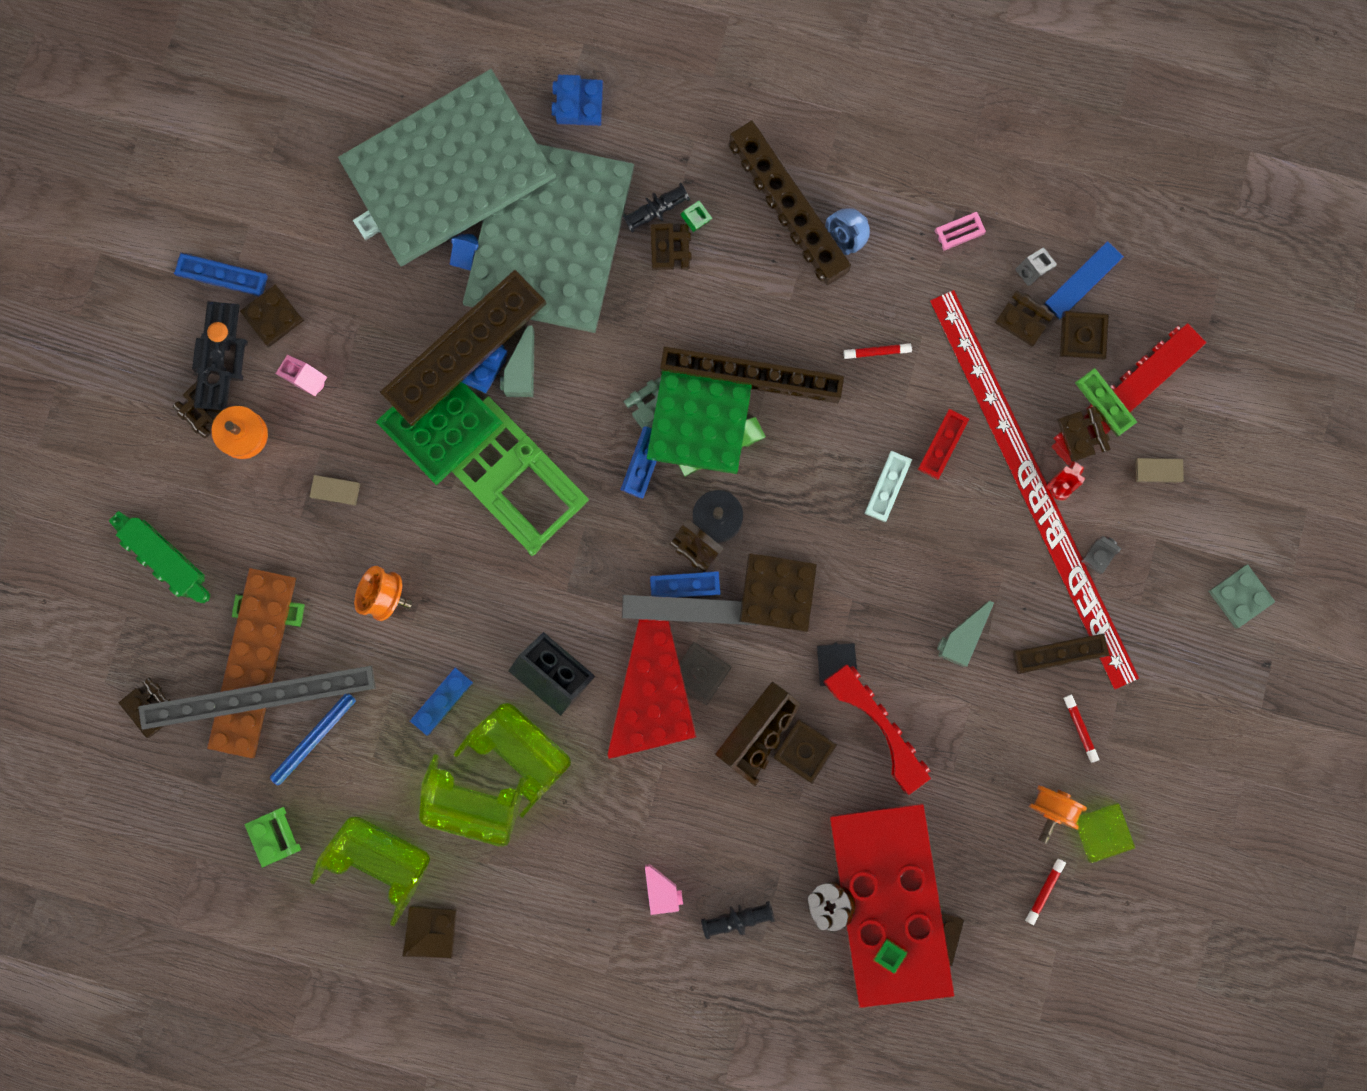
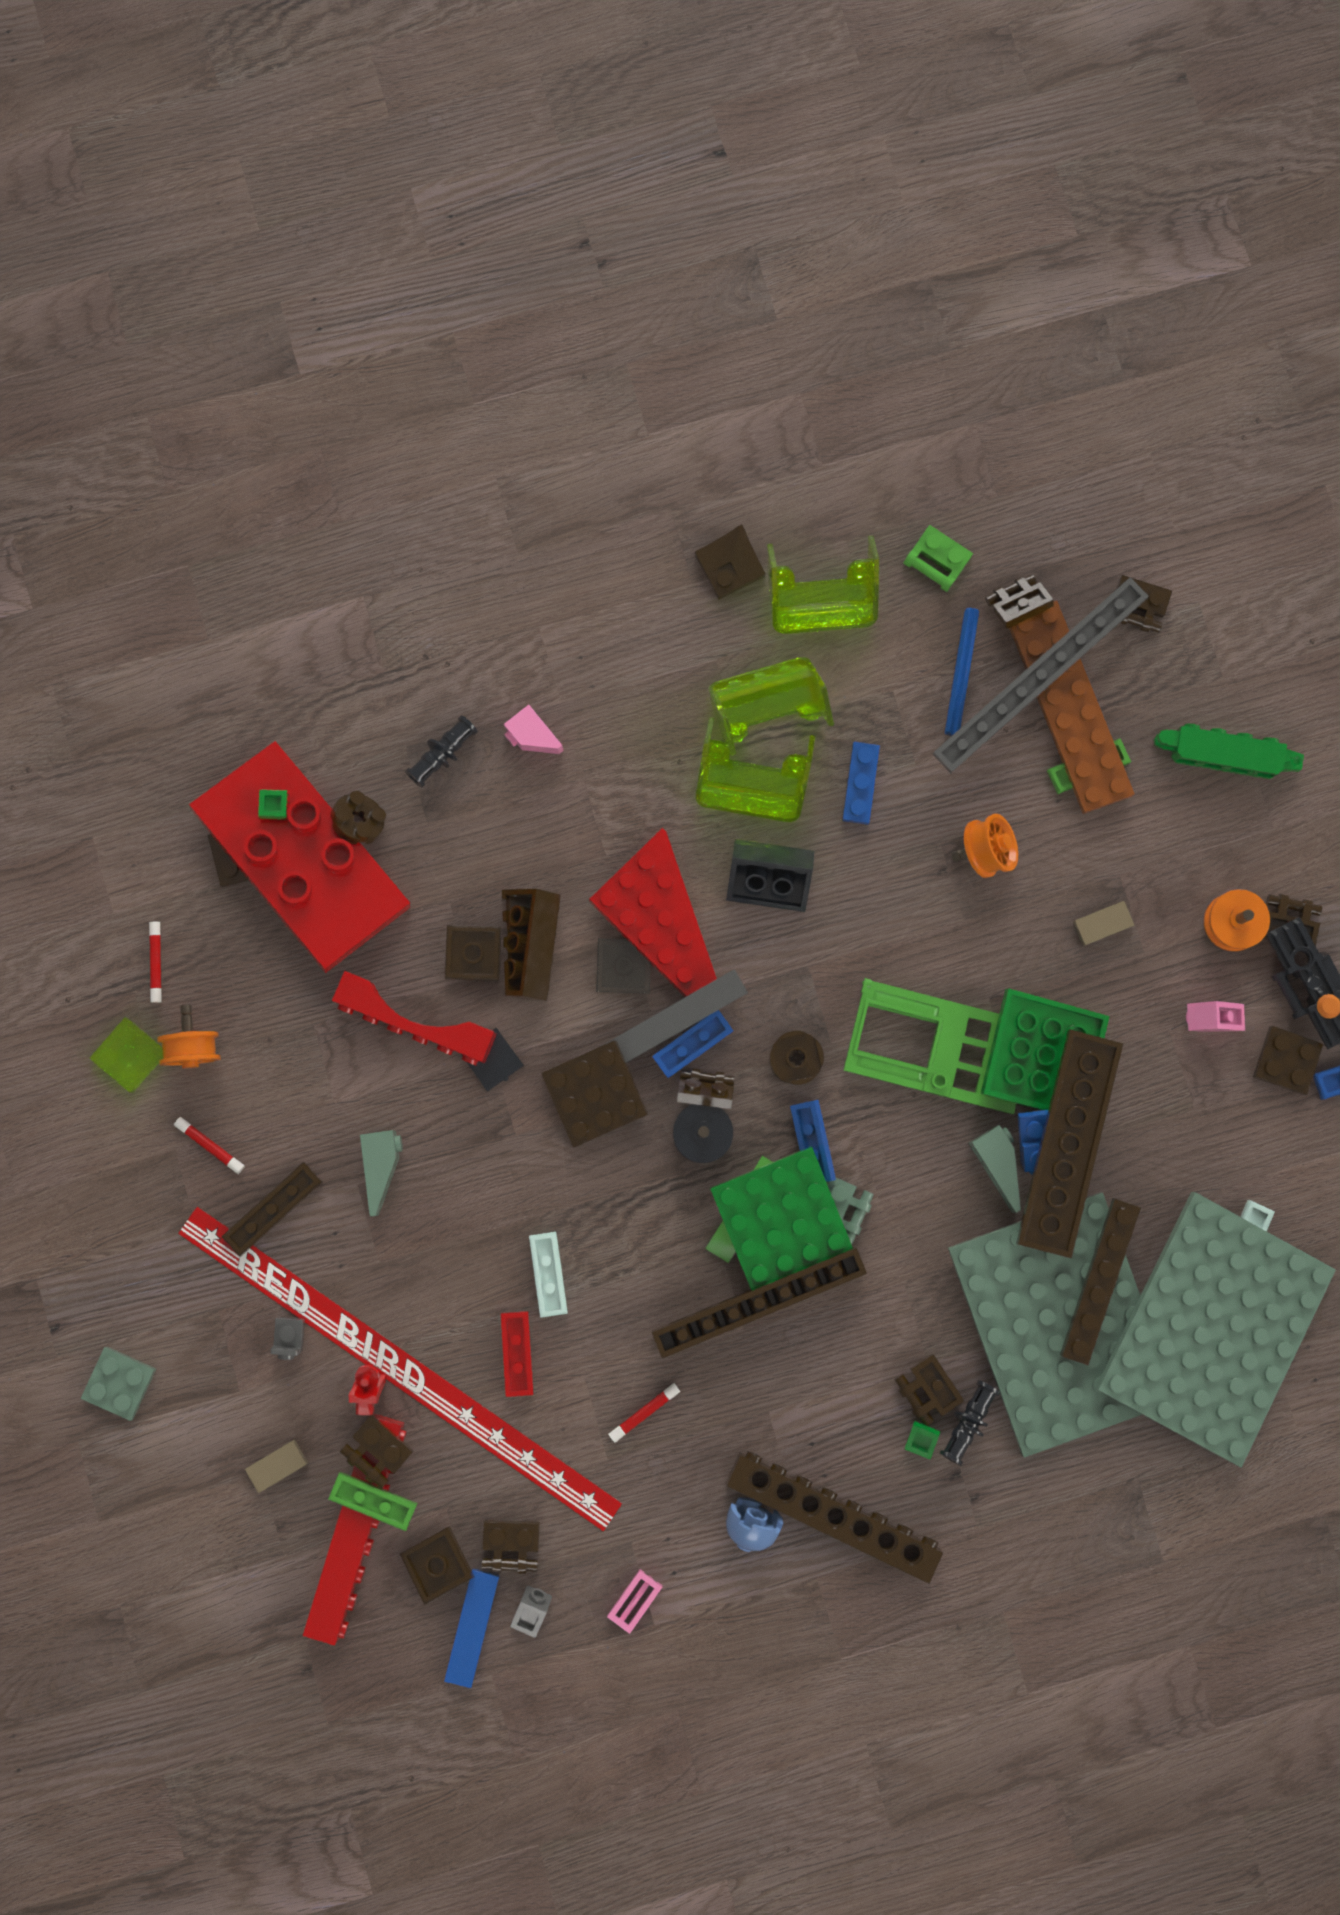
camera: 145 degrees right, 0 degrees up
(234, 759) = (1022, 605): none -> plate
(463, 251) = (1141, 1253): blue tile -> none
(504, 244) = (1100, 1281): none -> dark brown plate
(577, 100) = (1127, 1491): blue plate -> none
(610, 518) = (805, 1045): none -> dark brown plate

